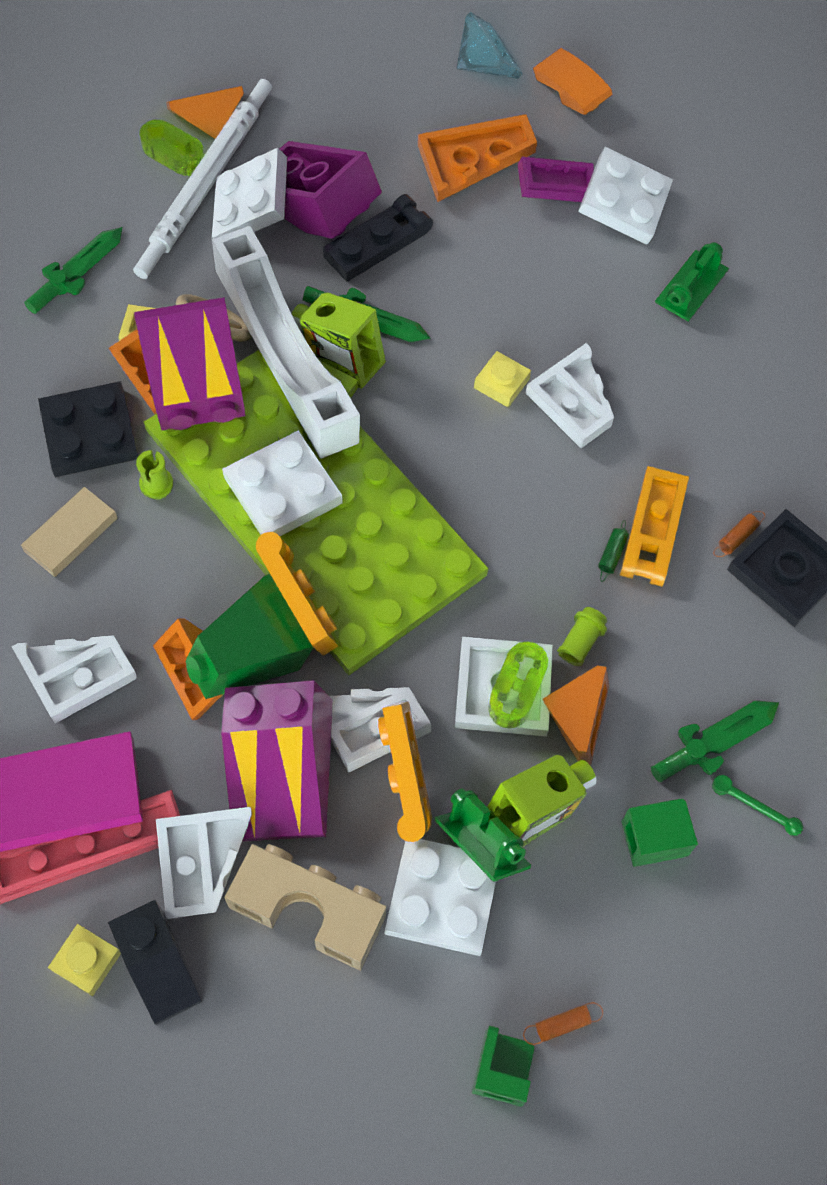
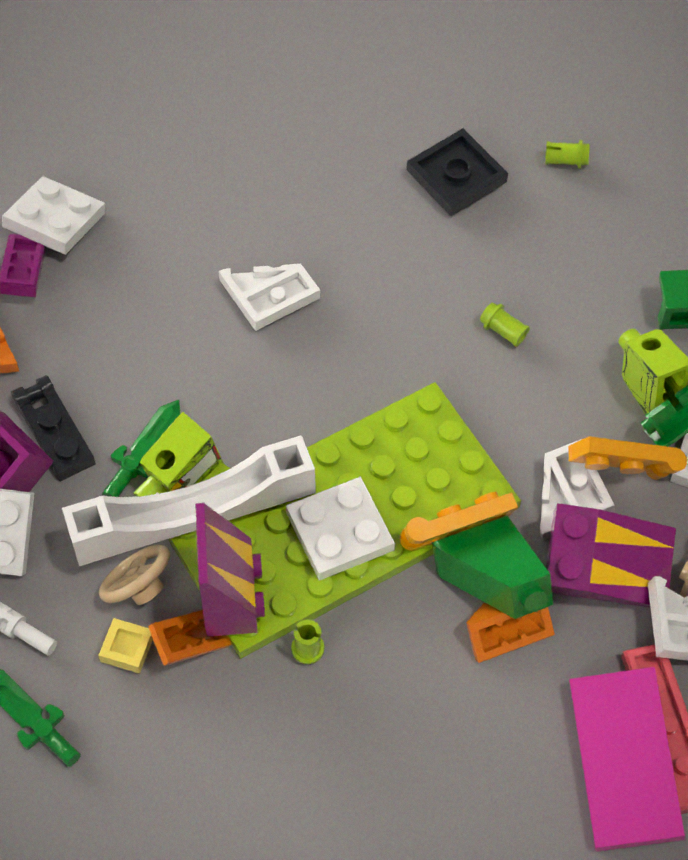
camera: 80 degrees left, 5 degrees down
(69, 531) = (351, 730): tan tile -> none
(75, 672) = (505, 727): white wing -> none
(87, 429) = (234, 709): black plate -> none
(478, 672) = (546, 386): white plate -> none
(502, 379) = (237, 346): light yellow plate -> none
(527, 688) = (554, 369): clear neon green beam -> none
(579, 710) = (577, 333): orange slope -> none
(613, 550) = (424, 291): green piece -> none
(655, 524) = (407, 255): light orange plate -> none
(694, 282) = (161, 183): green hinge -> none
(715, 739) = (600, 253): green sword -> none
(723, 785) = (635, 255): green hinge -> none
(739, 534) = (422, 205): orange piece -> none

